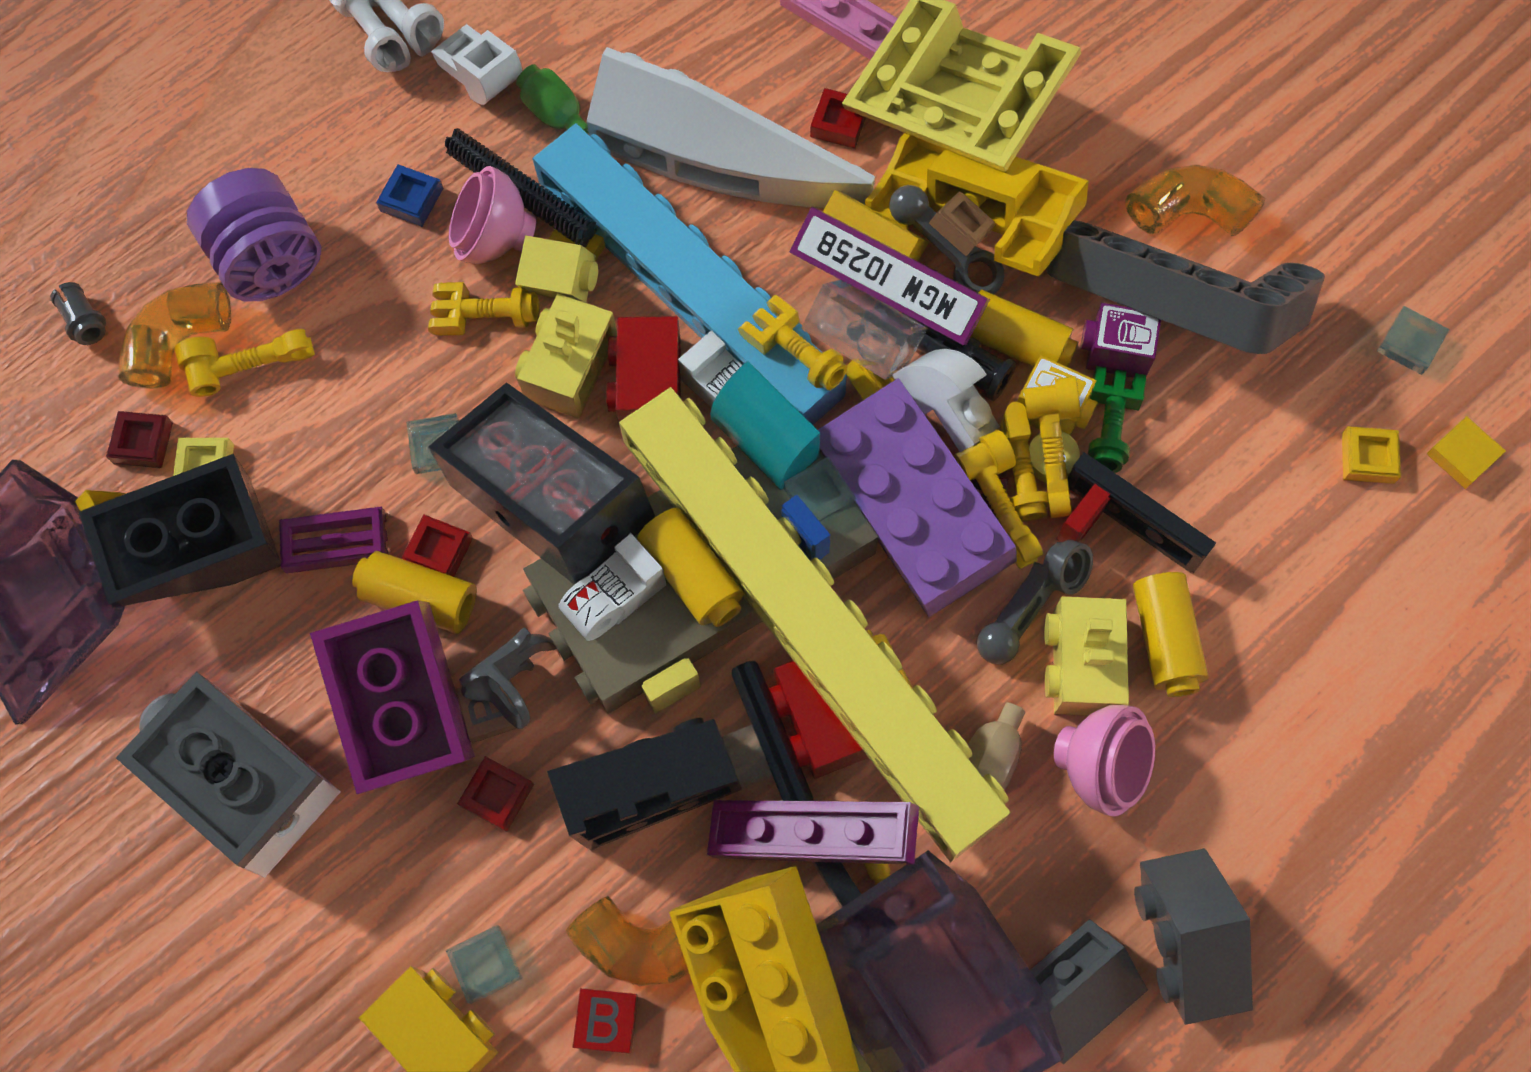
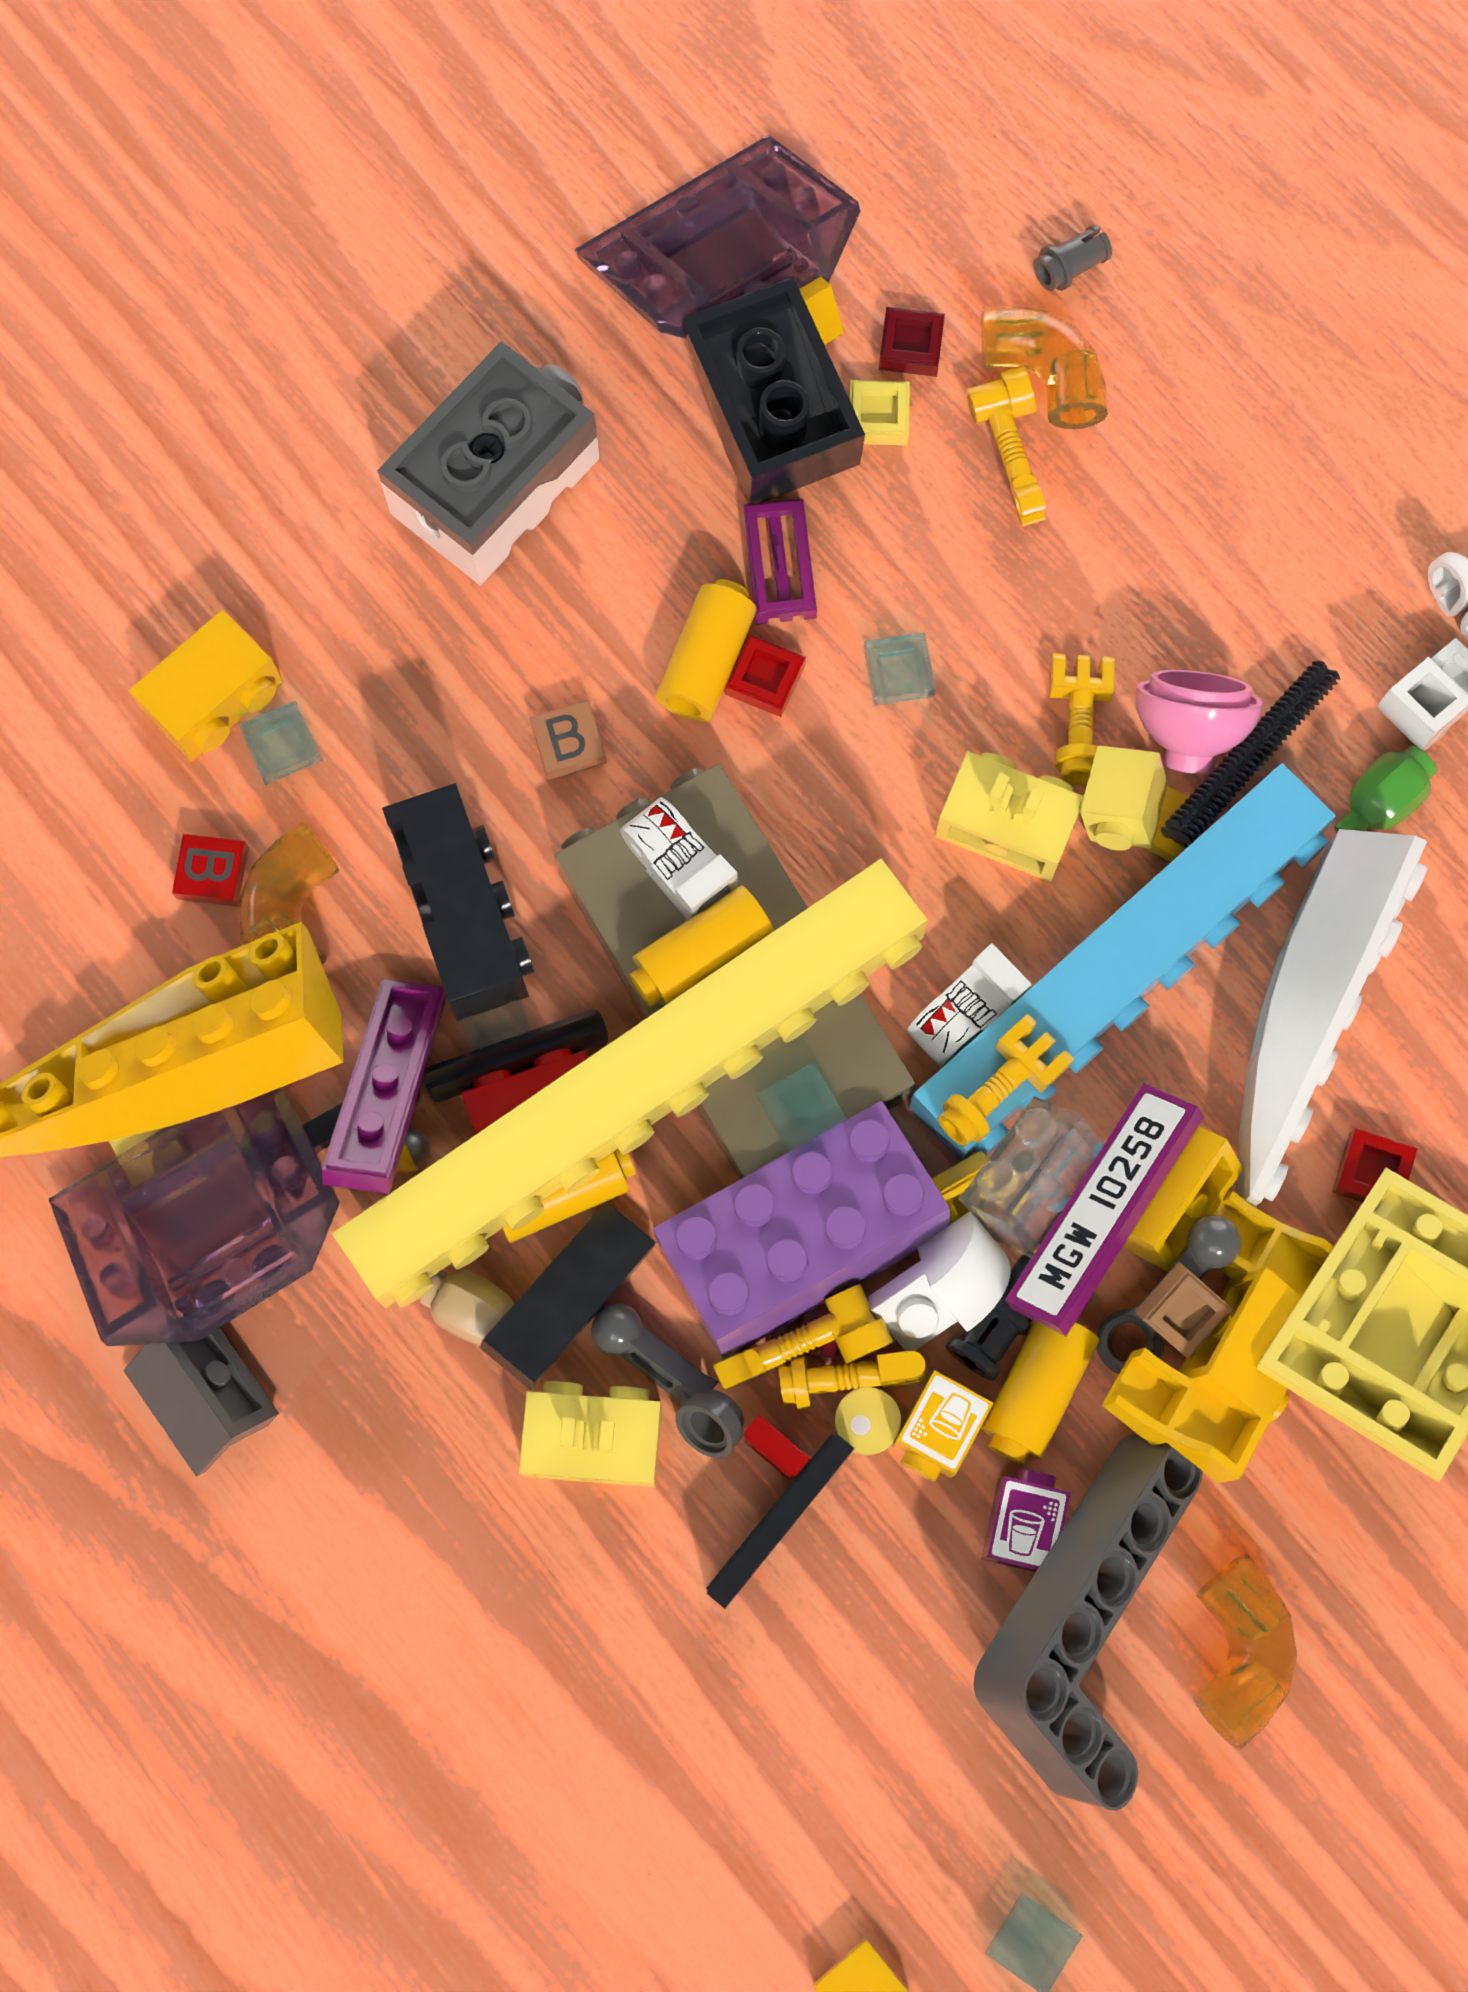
camera: 90 degrees right, 5 degrees up
(253, 234) = (1165, 438): medium lavender wheel -> none
(392, 695) = (569, 626): magenta brick -> none
(409, 195) = (1245, 624): blue tile -> none
(495, 794) = (468, 749): red tile -> none
(497, 669) = (591, 728): dark grey piece -> none
(542, 482) = (818, 777): brick -> none
(645, 362) = (986, 906): red brick -> none
(671, 685) = (579, 937): light yellow tile -> none
(765, 425) = (885, 1041): teal brick -> none
(813, 535) = (745, 1082): blue tile -> none
(978, 678) = (567, 1295): none -> black tile
(1051, 405) = (912, 1407): yellow brick -> none
(1108, 757) = (456, 1446): bright pink piece -> none
(1110, 448) = (866, 1491): green hinge -> none
(1170, 633) = (616, 1545): yellow brick -> none
(1198, 934) = (243, 1524): dark grey brick -> none
(1371, 455) = (862, 1855): yellow tile -> none

